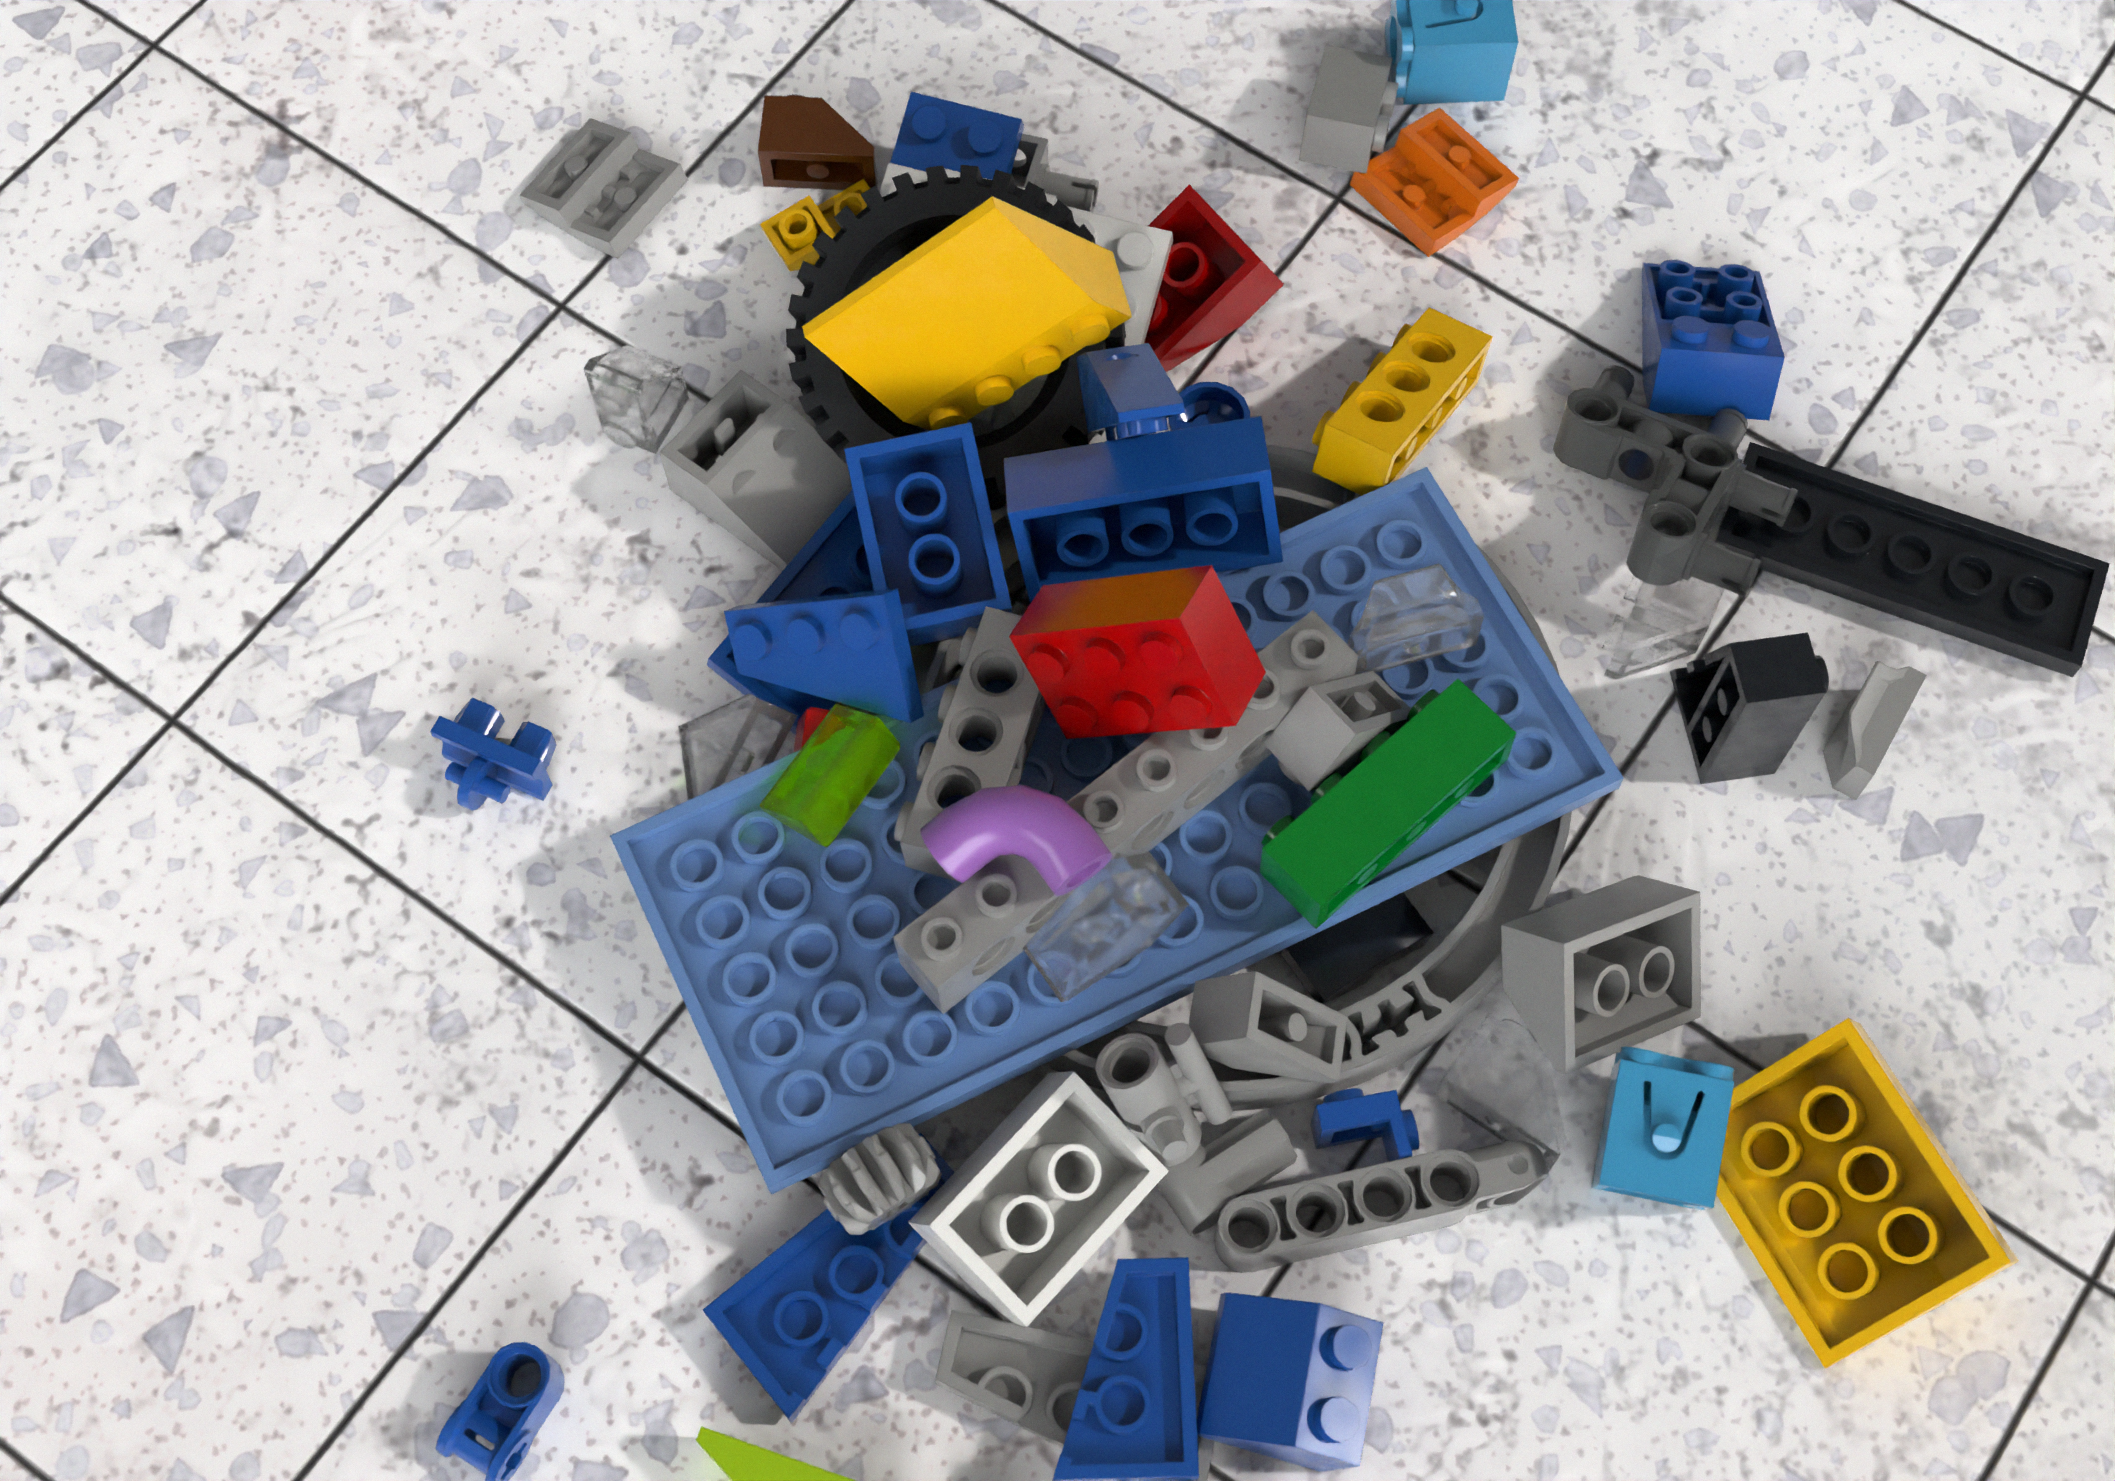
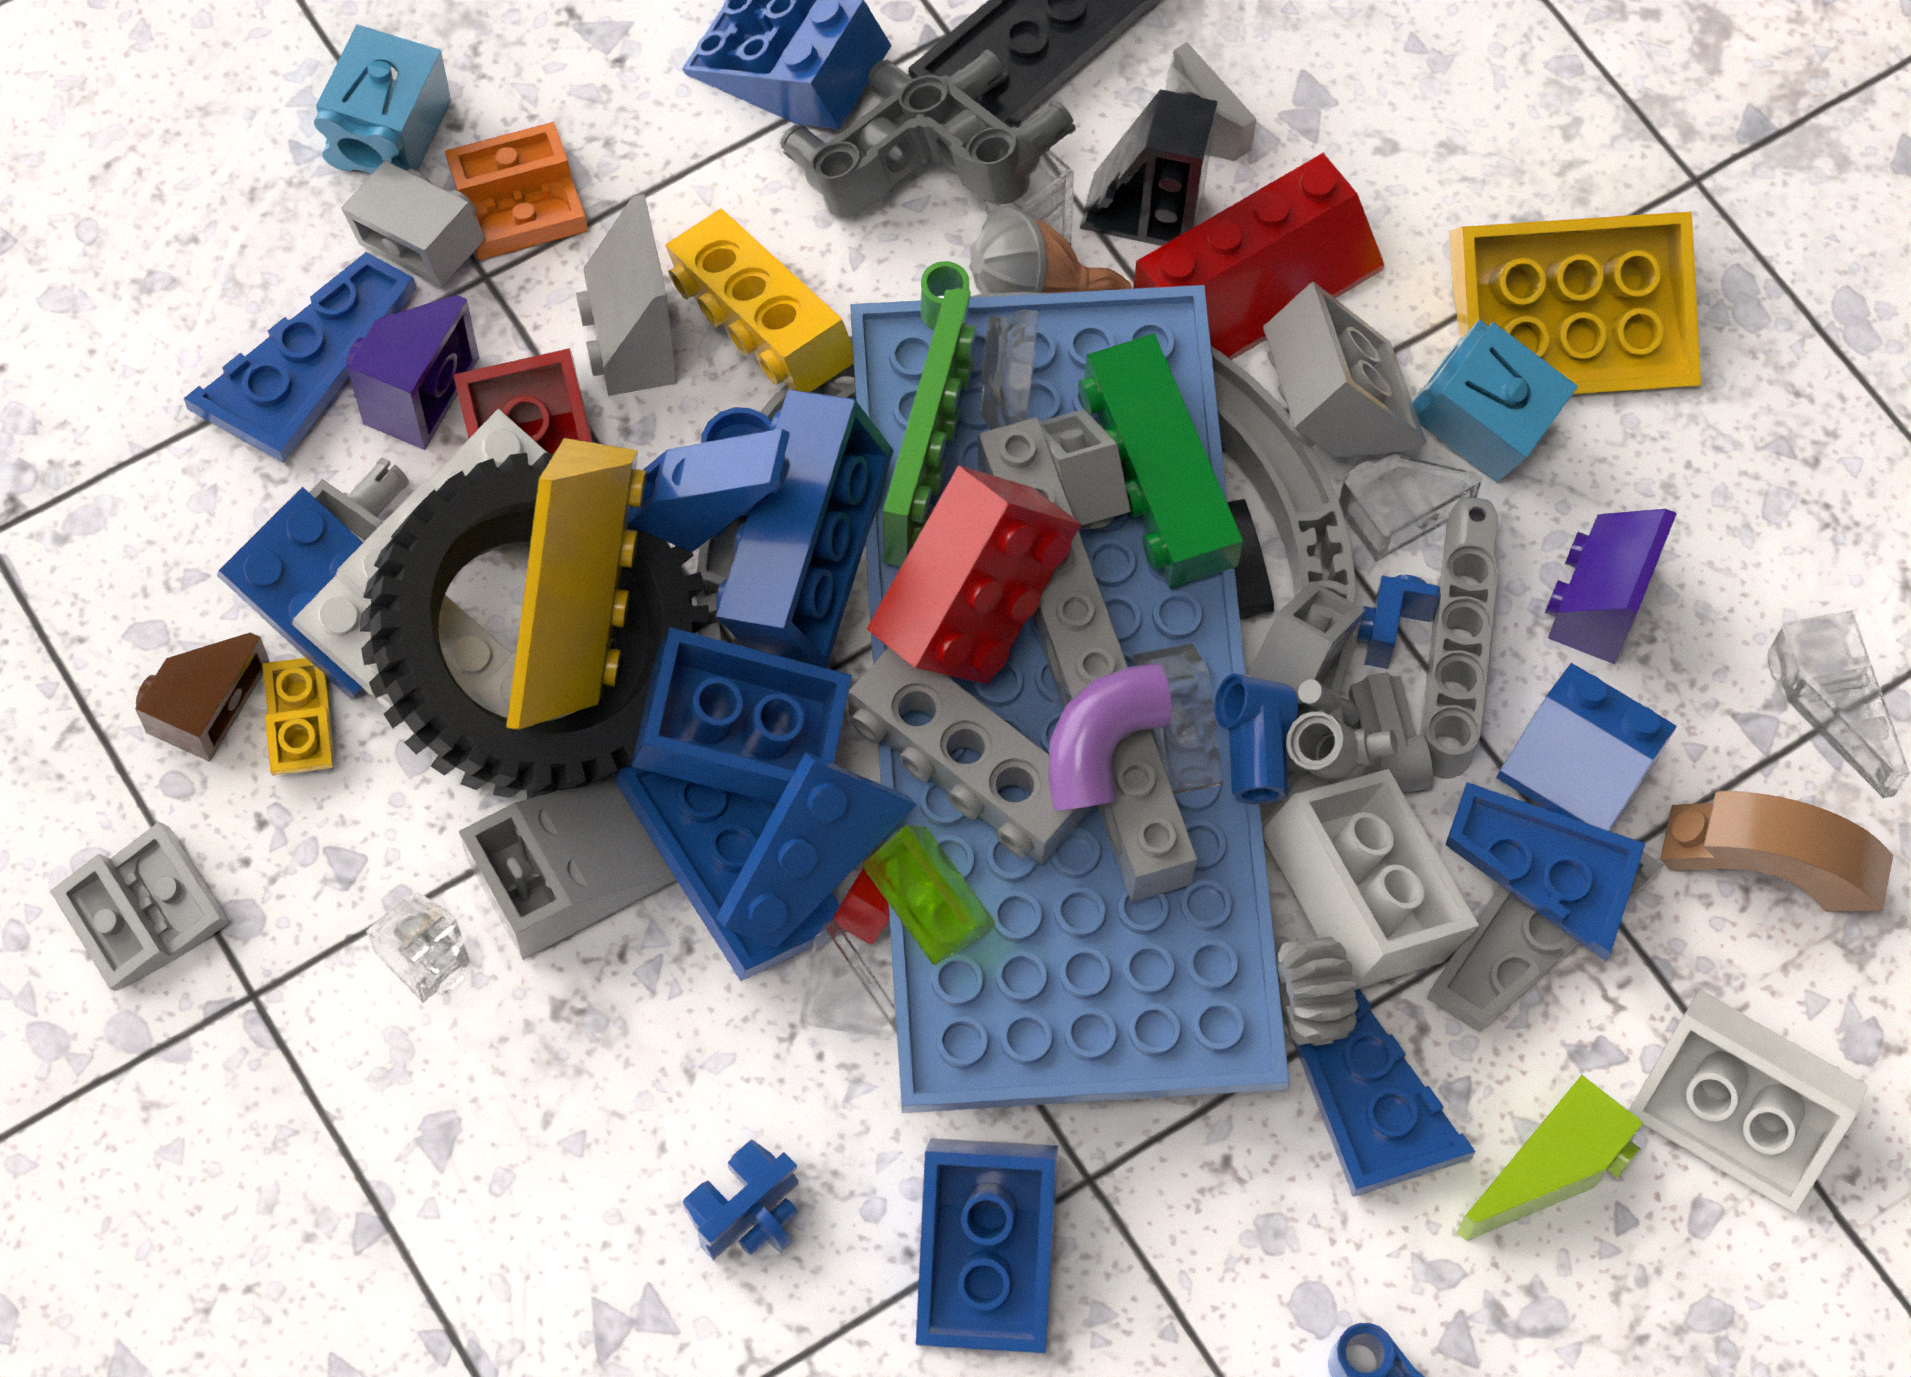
camera: 70 degrees left, 0 degrees up
(530, 977) = (986, 1245): none -> blue slope
(1139, 998) = (1257, 720): none -> blue piece
(1152, 89) = (297, 371): none -> blue wing
(1200, 146) = (408, 367): none -> dark purple slope
(1335, 557) = (934, 410): none -> bright green hinge
(1347, 309) = (628, 306): none -> light grey slope
(1512, 1338) = (1608, 581): none -> dark purple slope
(1584, 624) = (1031, 256): none -> light grey piece
(1686, 821) = (1268, 252): none -> red slope

